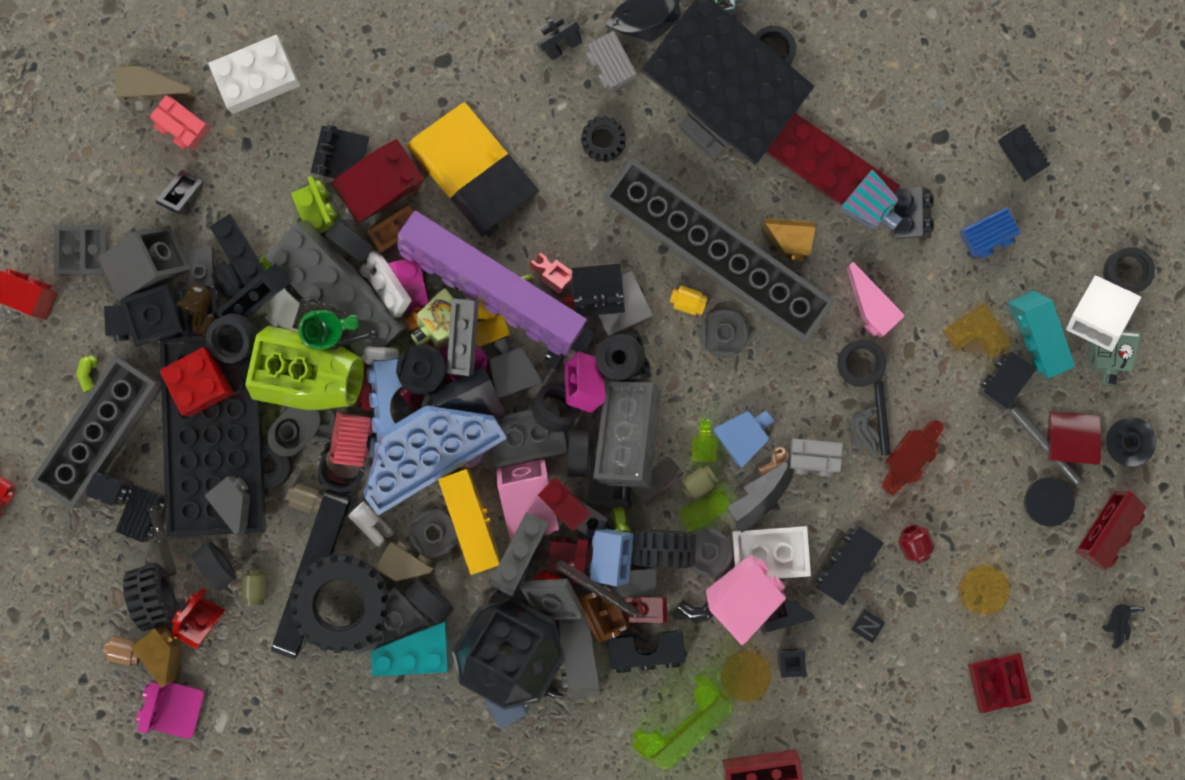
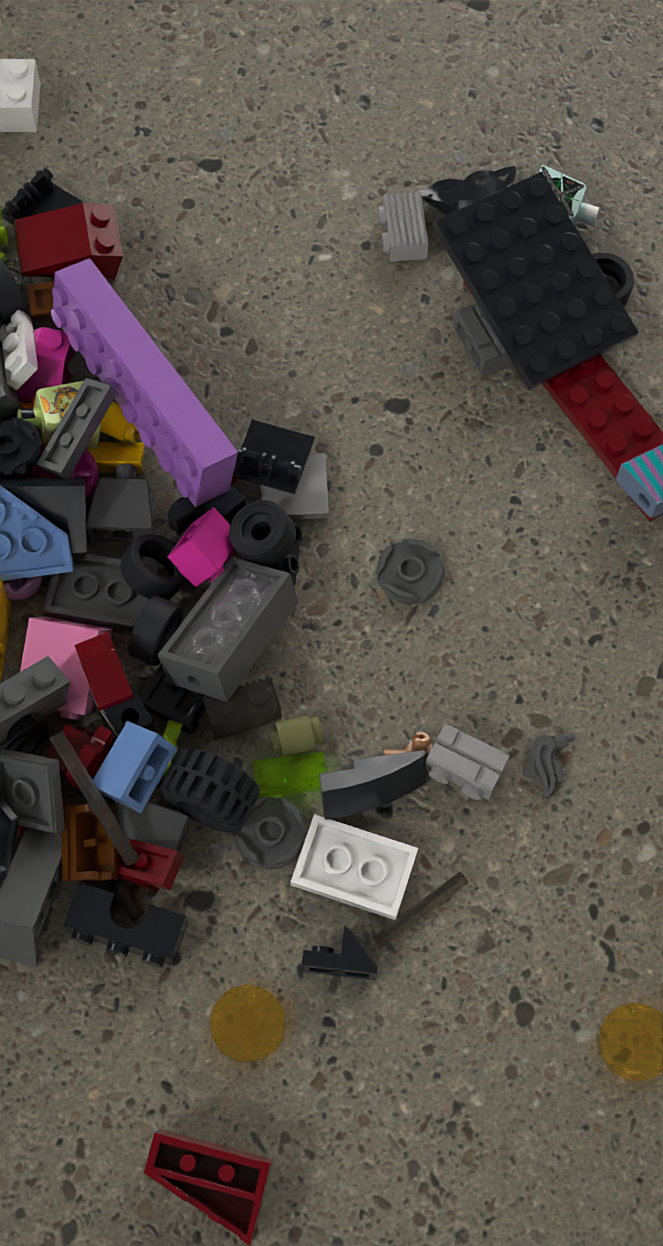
camera: 20 degrees right, 20 degrees down
(472, 169) = (186, 277): door -> none
(554, 275) = (229, 420): coral plate -> none
(569, 32) = (354, 176): black hips -> none
(607, 124) = (361, 287): black tyre -> none
(668, 750) = (132, 1057): clear neon green windscreen -> none
(688, 300) = (381, 512): yellow brick -> none
(695, 614) = (218, 907): black arm -> none
(703, 446) = (325, 691): clear neon green plate -> none
(717, 251) = (445, 471): dark grey brick -> none
(744, 435) = (381, 699): medium blue torso -> none
(745, 598) = (293, 902): bright pink slope -> none
(790, 237) = (541, 481): pearl gold slope -> none
(791, 662) = (318, 1022): black brick -> none
(848, 564) = (455, 924): black brick -> none
(867, 626) = (449, 1024): black tile -> none
(873, 304) = (620, 613): bright pink slope -> none
(879, 357) = (586, 650): black tyre -> none
(882, 418) = (576, 755): black bar -> none
(910, 456) = (598, 813): clear red hinge -> none
(916, 543) = (561, 934): dark red head -> none
(999, 682) = (611, 1190): dark red slope -> none

